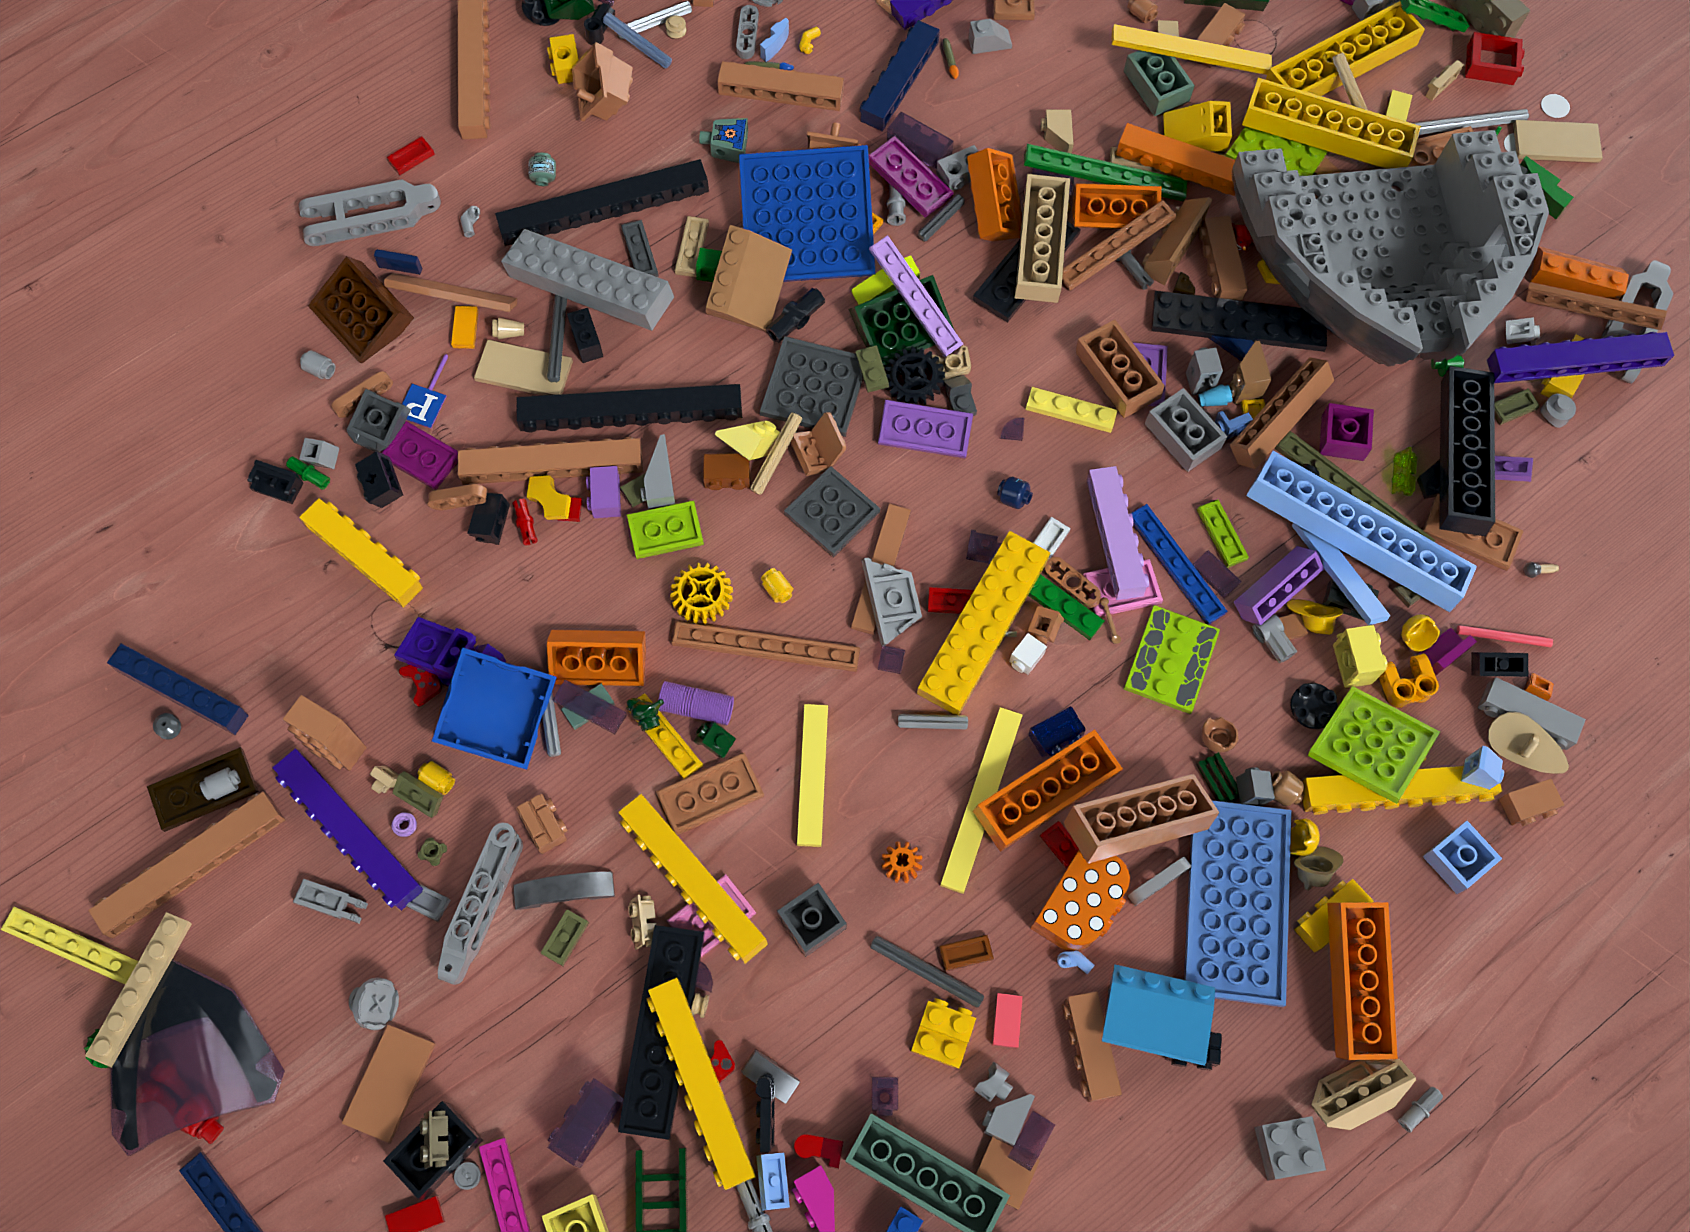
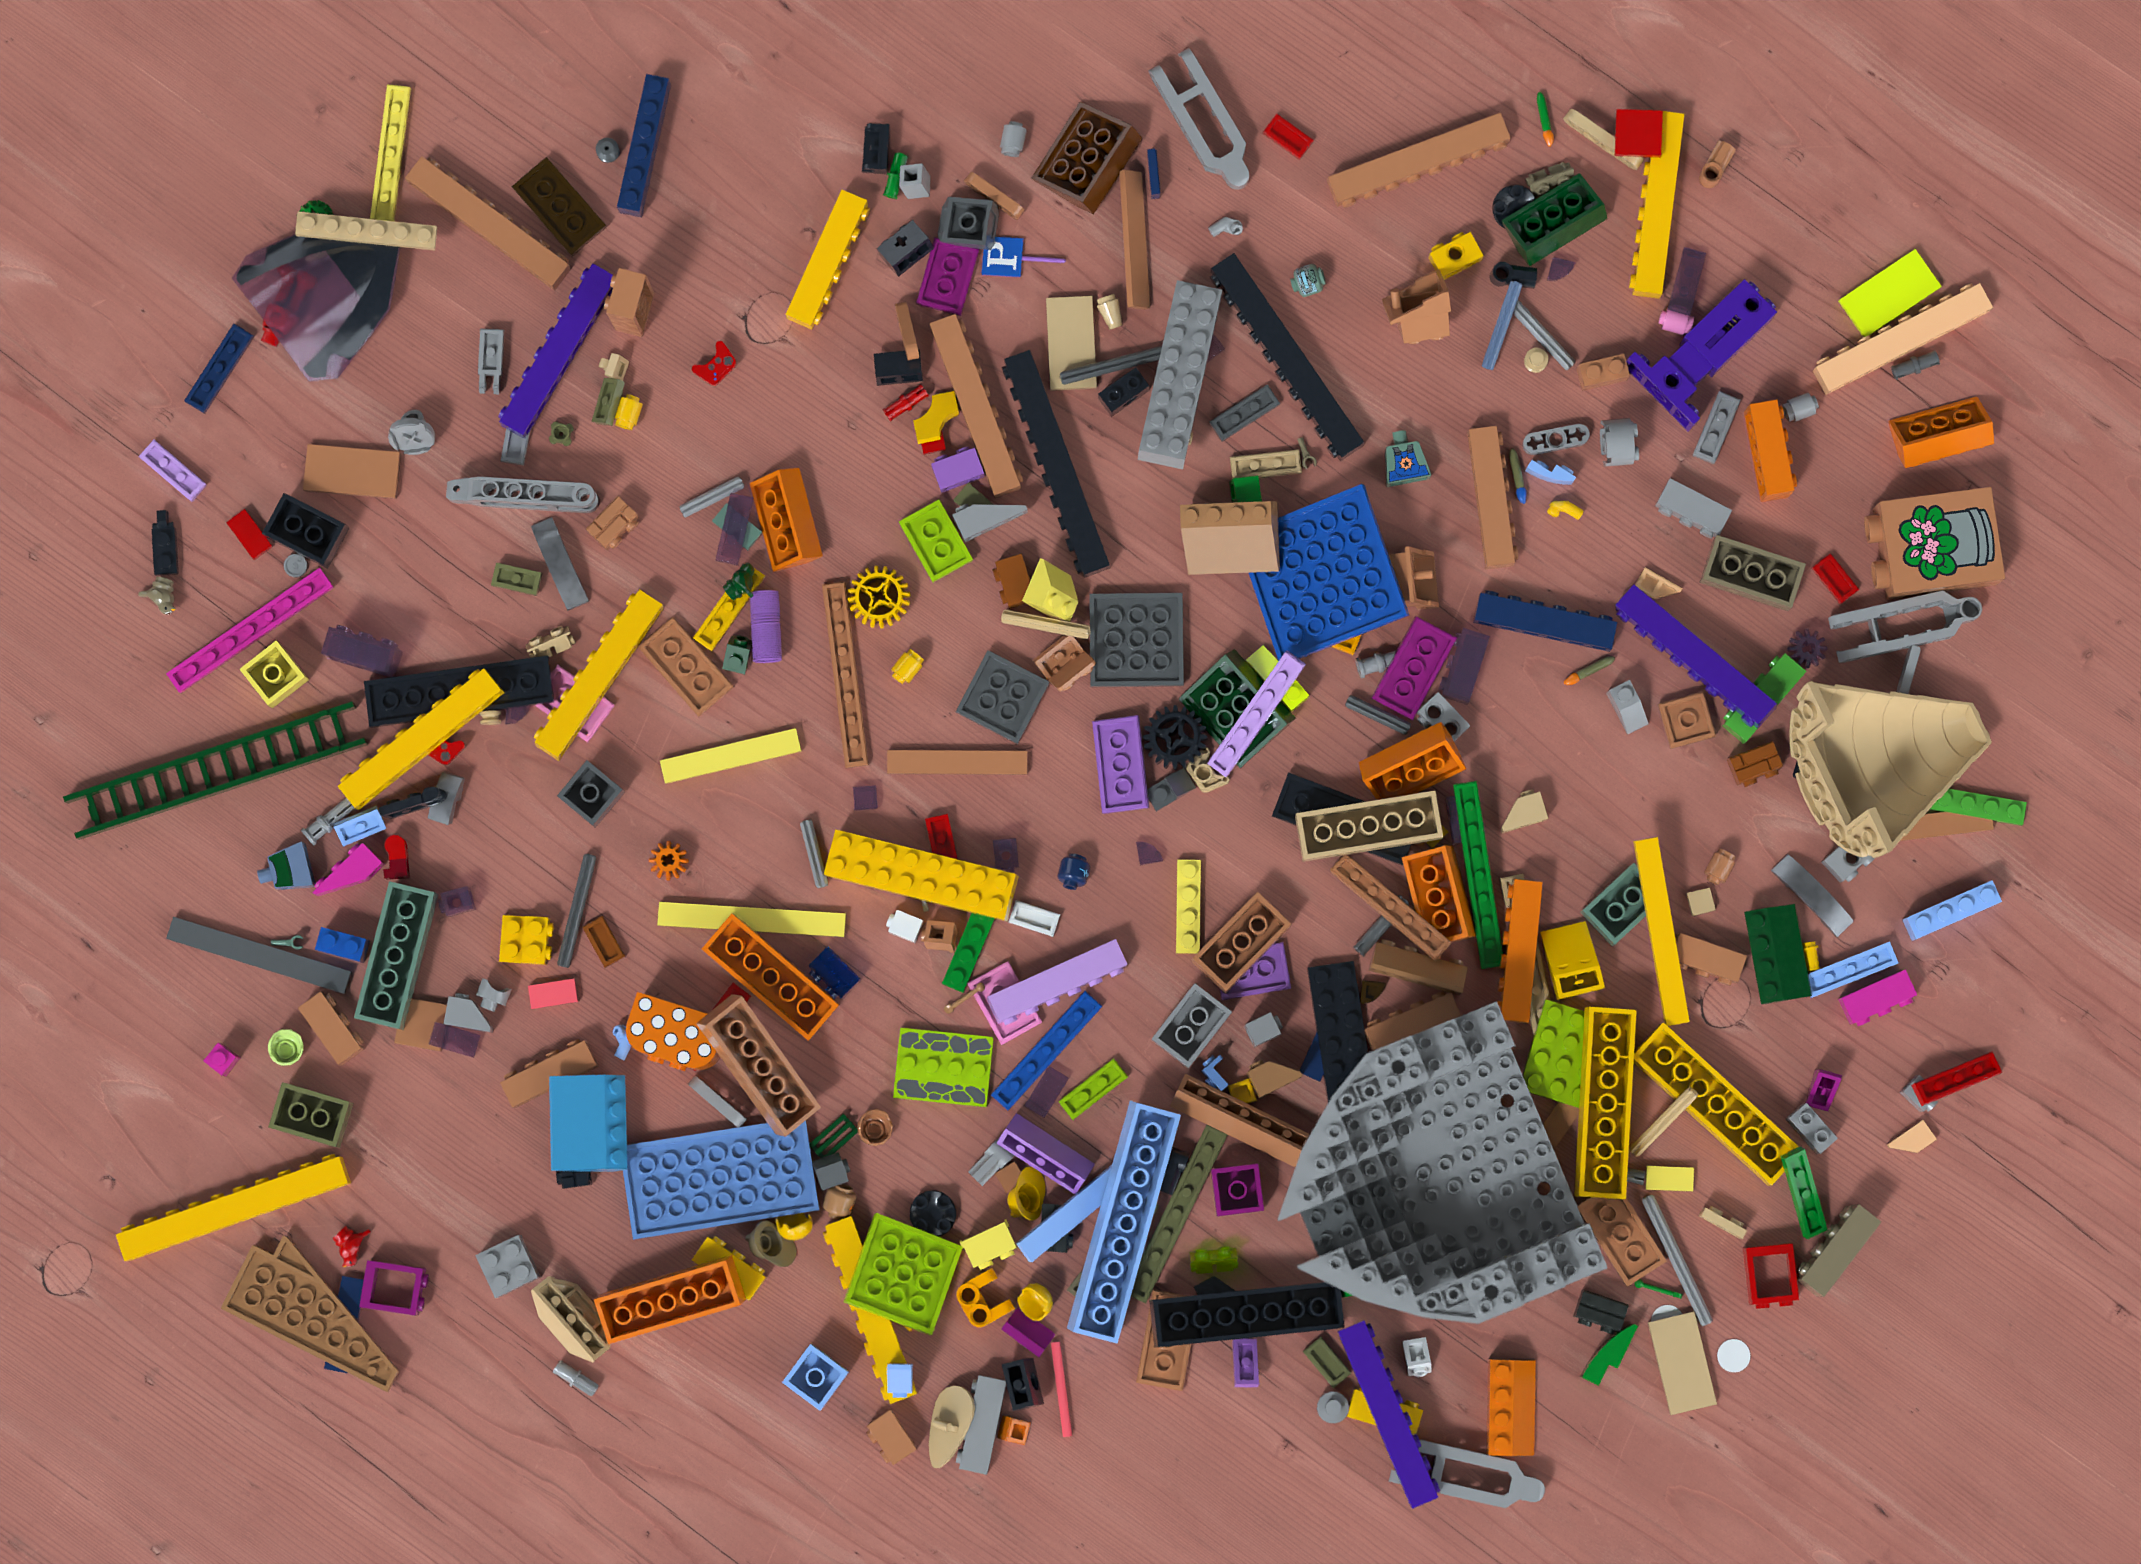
camera: 80 degrees right, 15 degrees up
(220, 784) = (564, 223): light grey brick -> none
(399, 819) = (578, 392): lavender plate -> none
(433, 1150) = (318, 524): dark tan hinge -> none
(438, 648) = (744, 383): dark purple piece -> none
(465, 327) = (1101, 267): light orange tile -> none
(493, 709) = (700, 443): blue tile -> none
(697, 213) = (1305, 453): none -> dark tan hand
(795, 315) = (1212, 596): black piece -> none
(872, 369) = (1168, 692): olive plate -> none
(892, 599) = (923, 781): light grey wing -> none
(1089, 587) = (1007, 940): nougat beam -> none
(1216, 396) = (1244, 1050): medium azure cone -> none
(1533, 569) = (1141, 1406): piece -> none
(1596, 306) = (1460, 1424): nougat tile -> none

